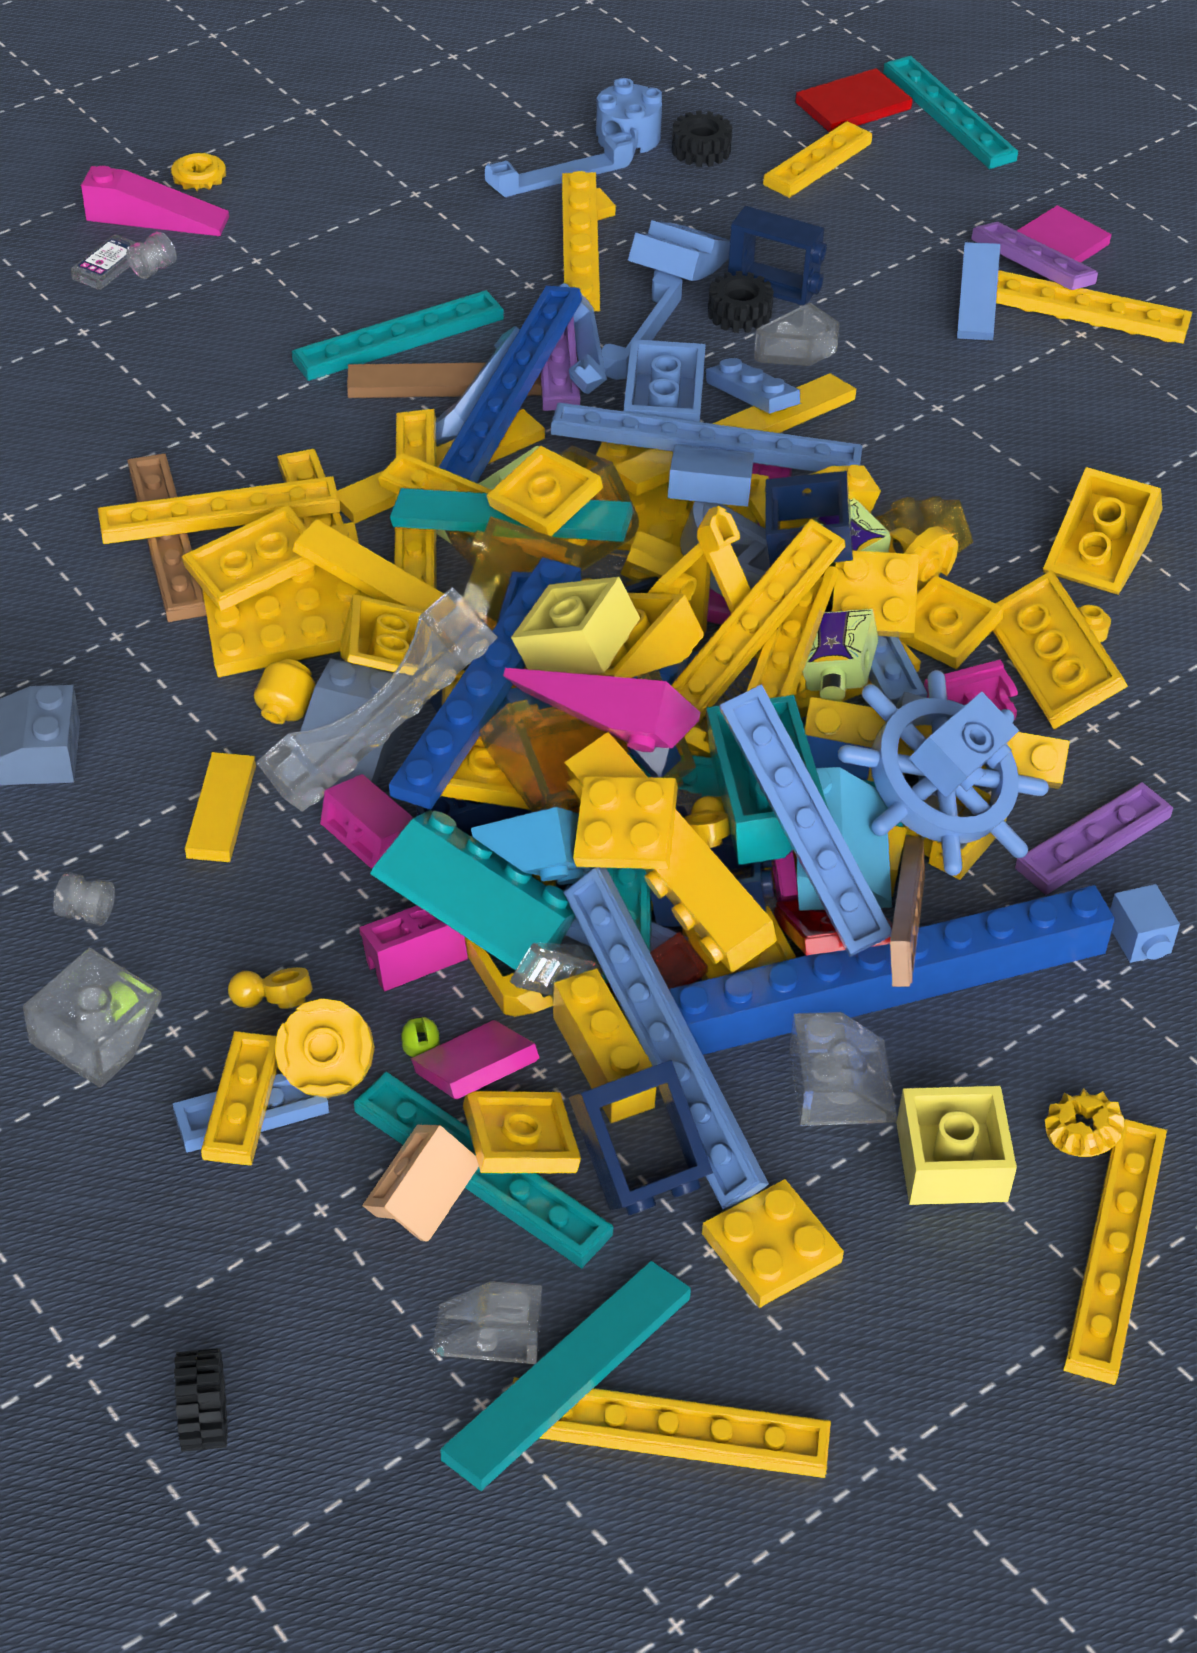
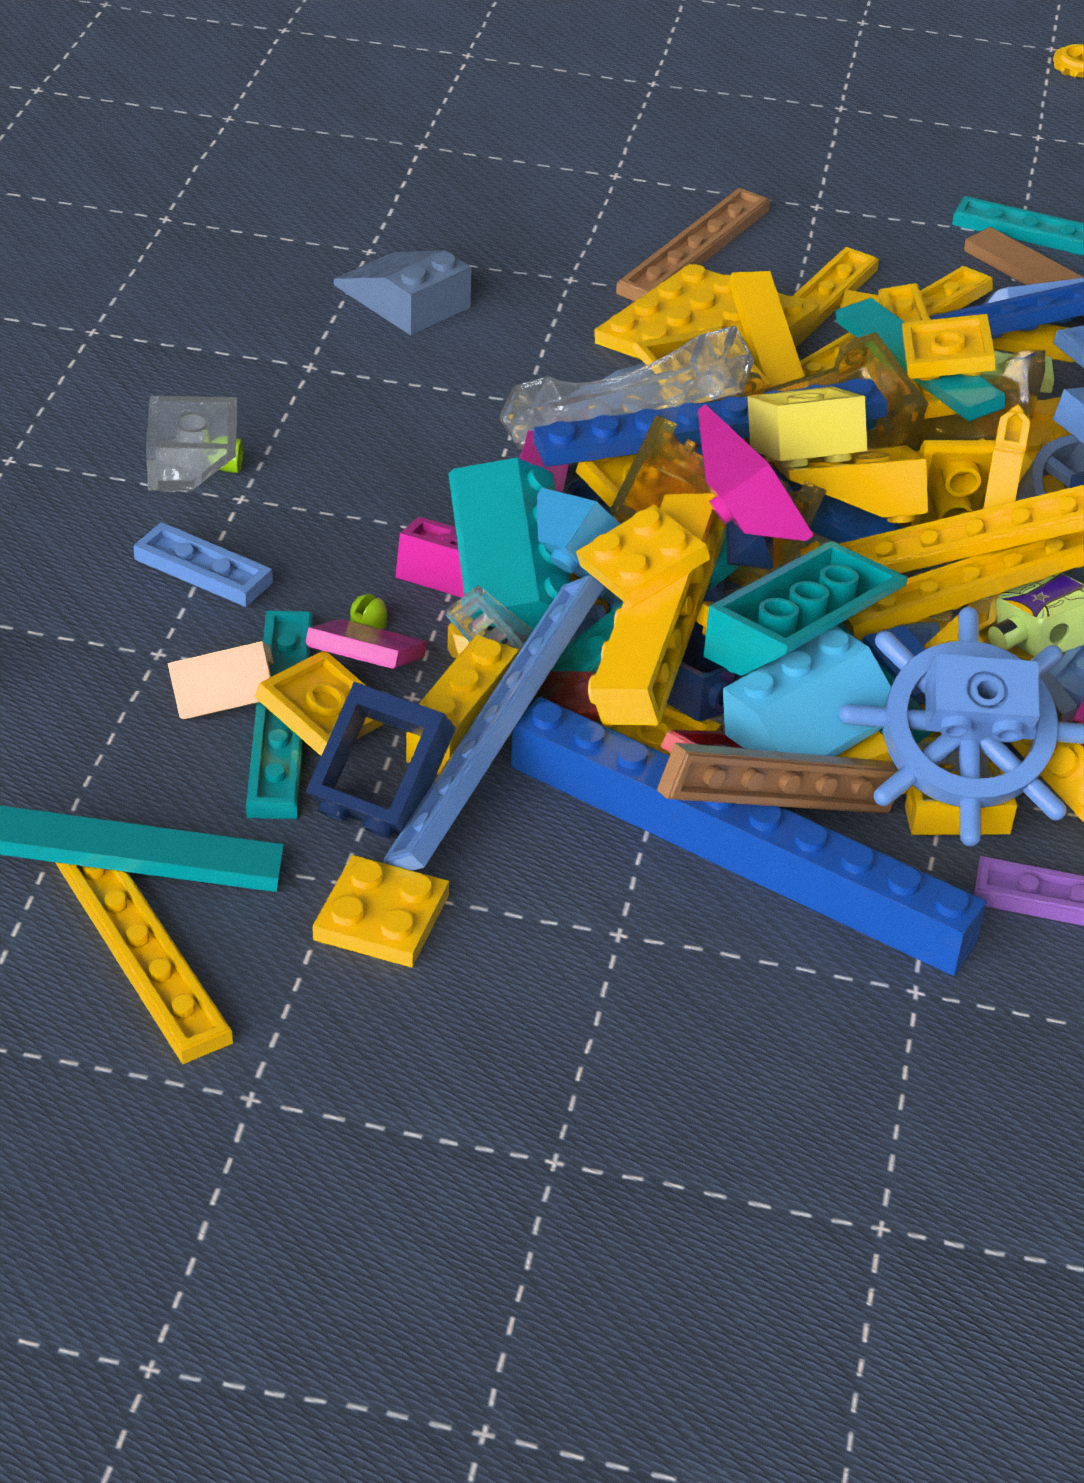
camera: 50 degrees right, 5 degrees down
(82, 898) = (299, 388): clear wheel -> none
(103, 263) = (922, 77): tile -> none
(132, 200) = (1003, 55): dark pink wedge -> none
(149, 256) = (952, 86): clear wheel -> none
(215, 509) = (747, 248): yellow tile -> none
(220, 807) = (461, 407): yellow tile -> none
(241, 1099) = (197, 547): yellow tile -> none
(249, 558) = (701, 278): yellow tile -> none
(282, 987) = (331, 523): yellow plate -> none
(284, 691) = (607, 359): yellow head -> none
(324, 1048) = (276, 554): yellow tile -> none
(491, 1323) = (135, 789): clear slope -> none
(806, 820) = (754, 623): medium blue plate -> none
(839, 1071) = (597, 856): clear slope -> none
(955, 1145) = (589, 959): light yellow brick -> none
(1078, 1138) = (743, 1052): yellow gear -> none
(1115, 1254) = (612, 1140): yellow tile -> none
(1143, 923) = (1006, 973): medium blue brick -> none

